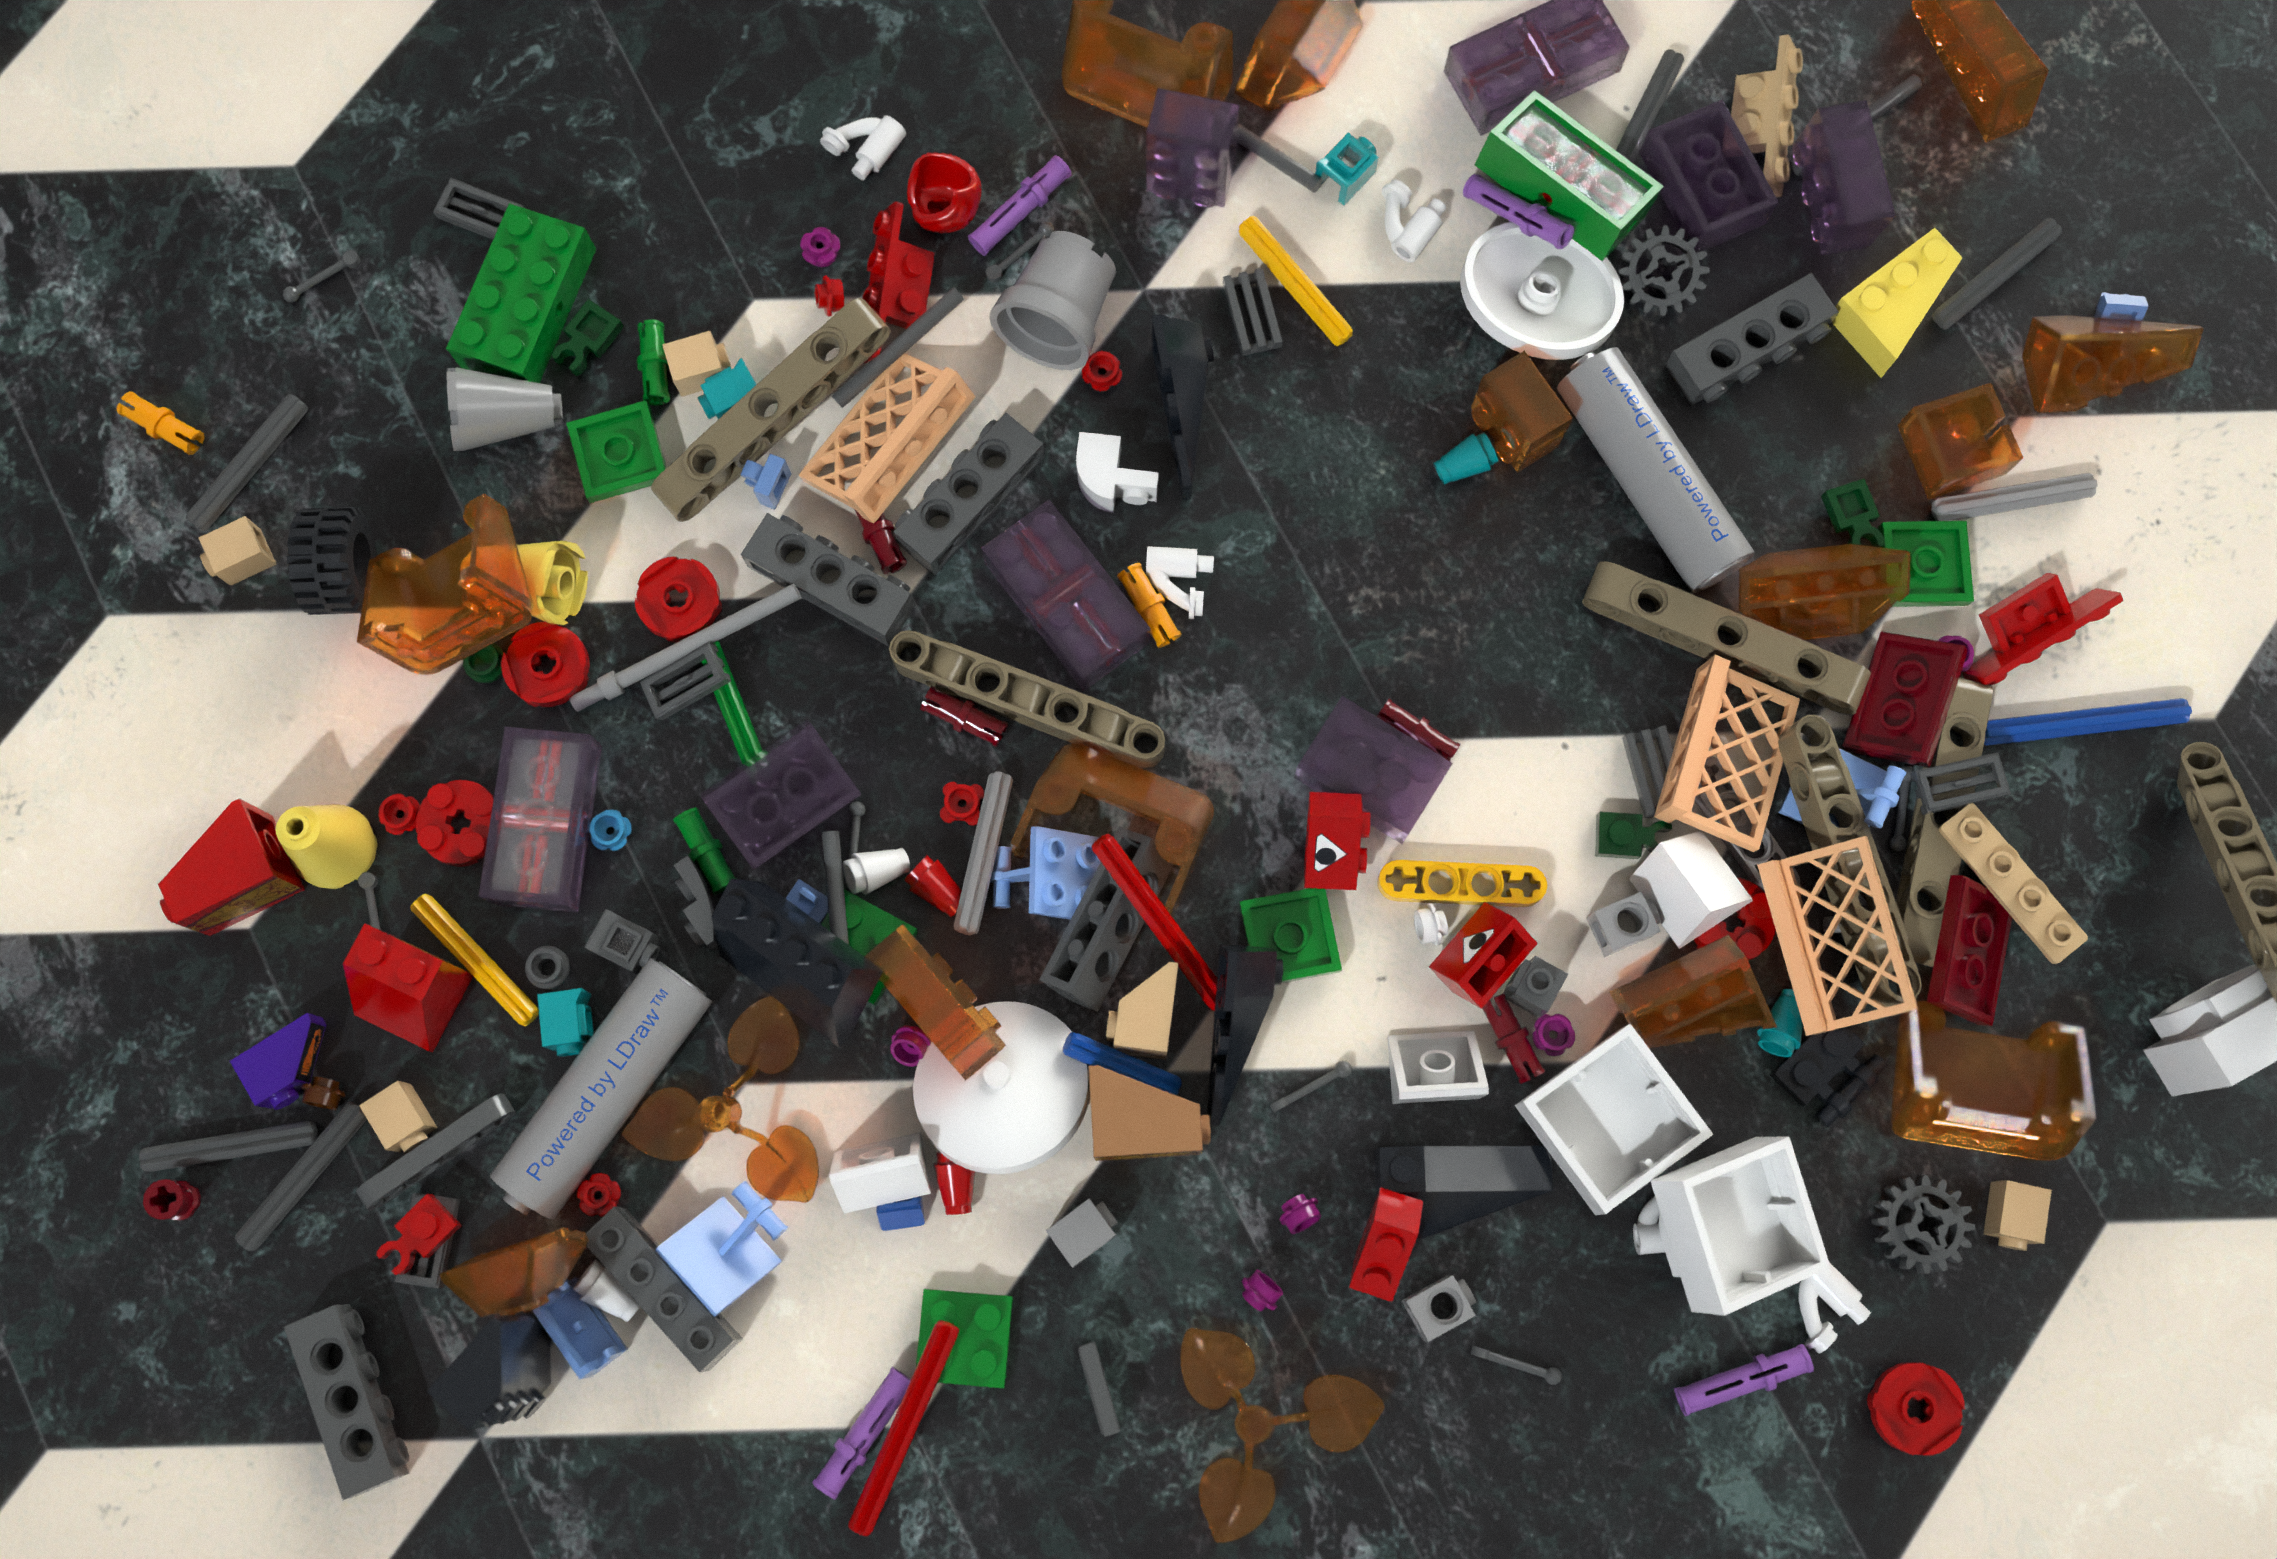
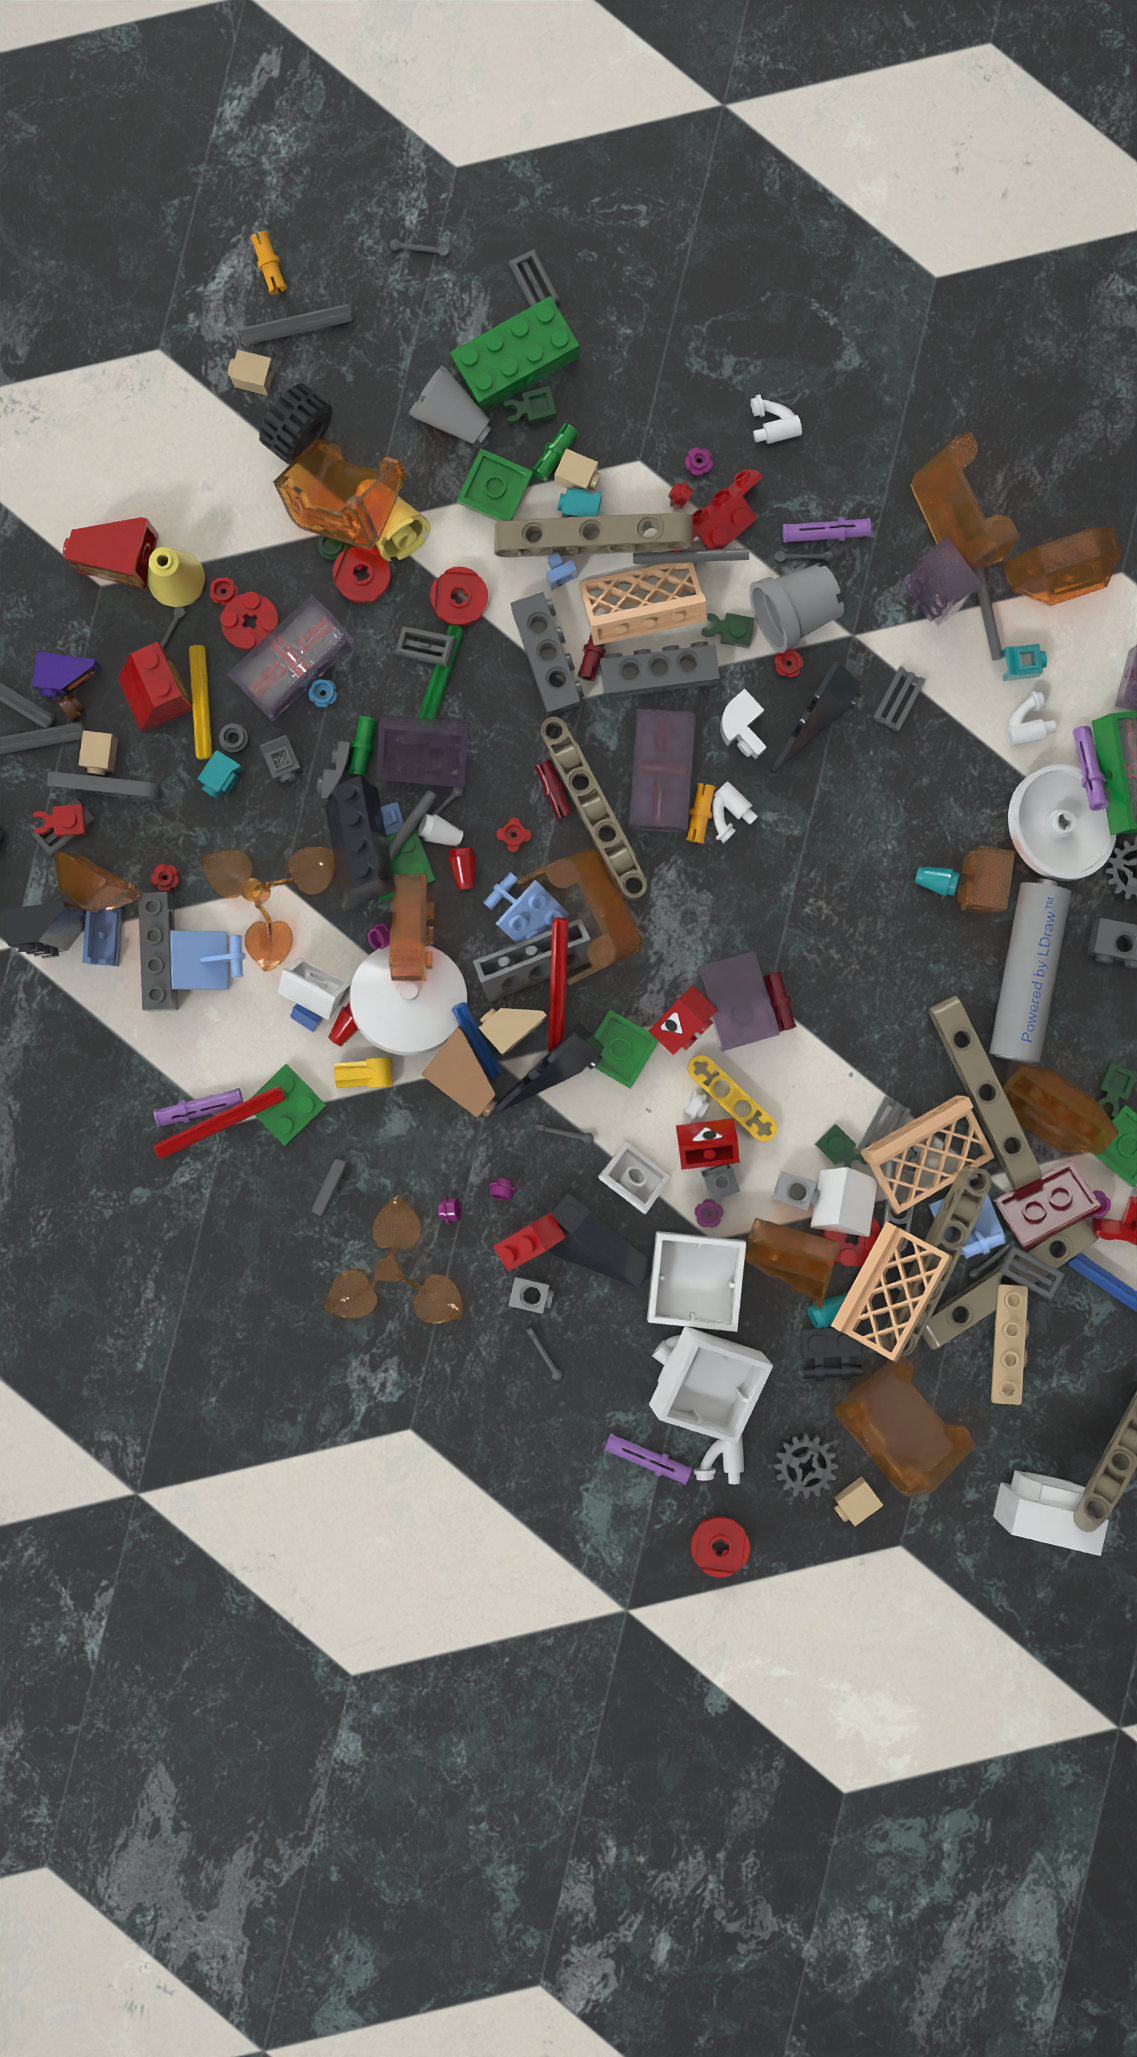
camera: 45 degrees right, 10 degrees up
(599, 1090) = (209, 825): light grey piece -> none
(604, 1292) = (128, 927): white cone -> none
(614, 684) = (388, 615): light grey bar -> none
(947, 184) = (795, 483): red piece -> none
(983, 853) = (501, 870): light grey axle -> none
(1011, 386) = (735, 629): none -> dark green plate
(1032, 1212) = (369, 1073): none -> yellow piece
(1083, 1231) = (387, 1104): light grey brick -> none
(1295, 281) = (937, 701): yellow axle -> none
(1512, 1038) = (686, 1197): dark red pin -> none
(1970, 952) = (955, 1358): dark red tile -> none

